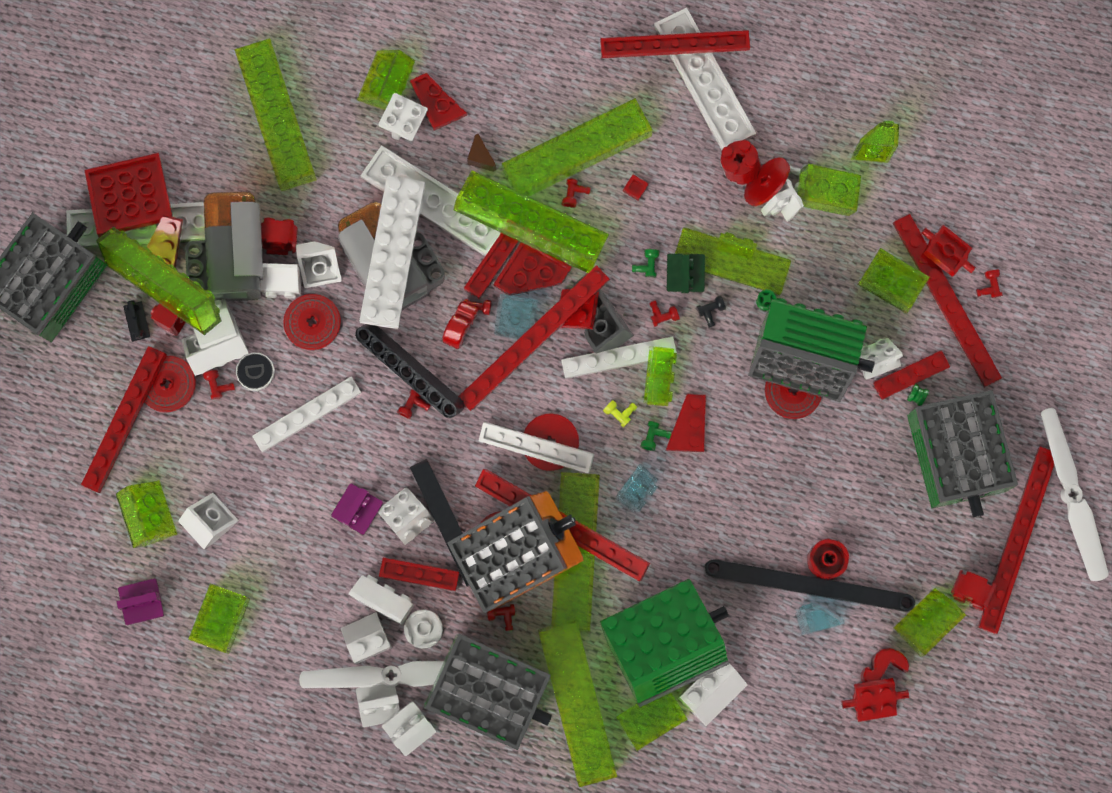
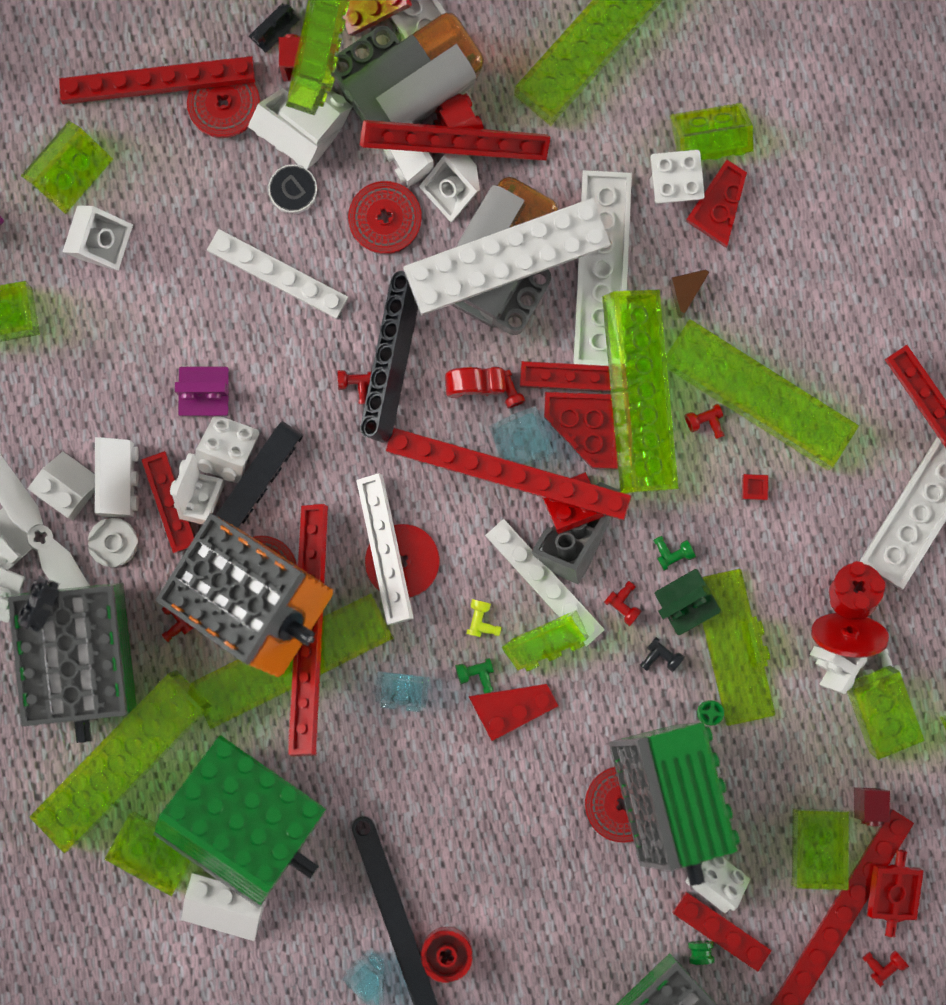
camera: 60 degrees right, 5 degrees up
(216, 390) = (247, 160): red piece -> none
(292, 243) = (454, 140): none -> red plate
(425, 551) = (195, 493): none -> white bracket
(436, 682) = (40, 594): none -> black hinge
(884, 232) = (872, 806): none -> dark red brick

